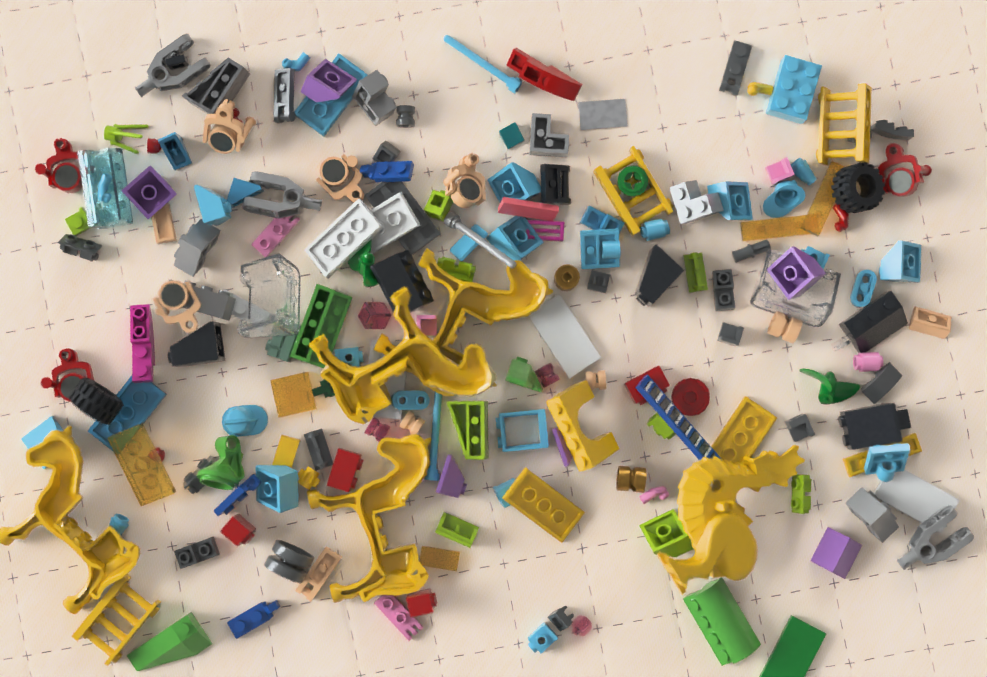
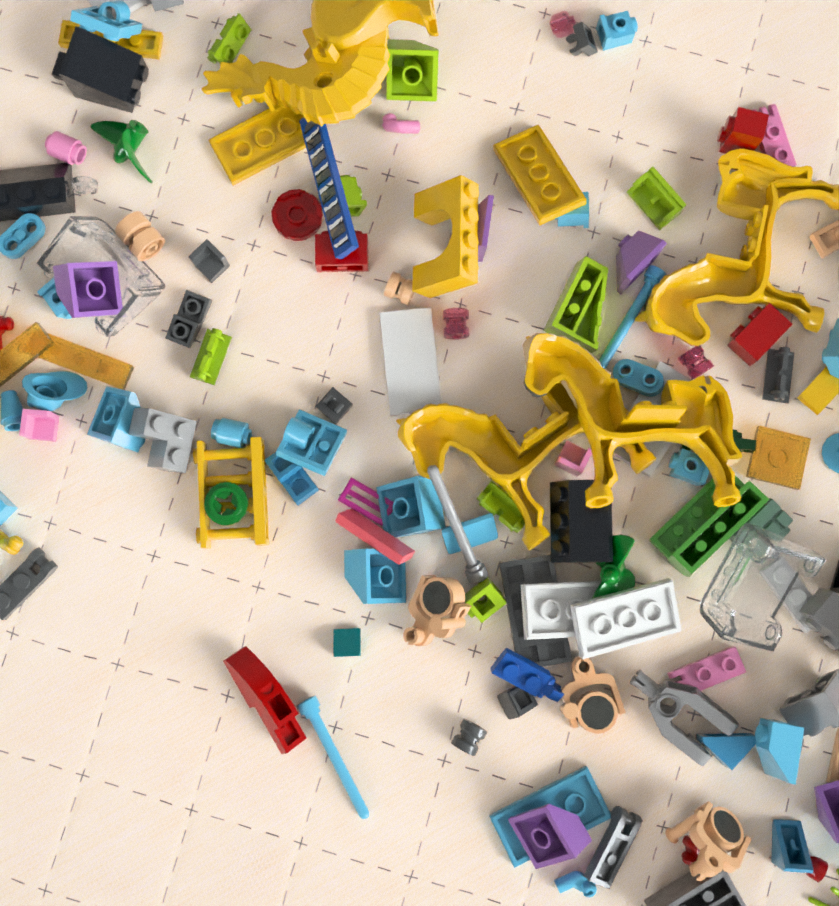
camera: 150 degrees left, 5 degrees down
(308, 478) = (808, 346): yellow gear -> none
(372, 97) = (500, 782): light grey brick -> none
(374, 315) = (632, 502): clear pink panel -> none
(411, 423) = (649, 348): light nougat wheel -> none
(439, 558) = (692, 178): clear yellow tile -> none
(500, 424) = (525, 252): medium azure window -> none
(523, 375) = (490, 331): bright green wedge -> none
(546, 143) = (311, 612): light grey brick -> none
(554, 184) = (325, 551): black plate -> none
(566, 277) = (371, 427): pearl gold wheel -> none
(602, 114) = (218, 611): flat silver sticker -> none
(631, 479) = (418, 152): pearl gold wheel -> none
(656, 276) = (260, 370): black slope -> none
(751, 250) = (129, 348): dark grey axle -> none
(799, 427) = (187, 116): dark grey panel -> none
(884, 381) = (63, 114): dark grey slope -> none

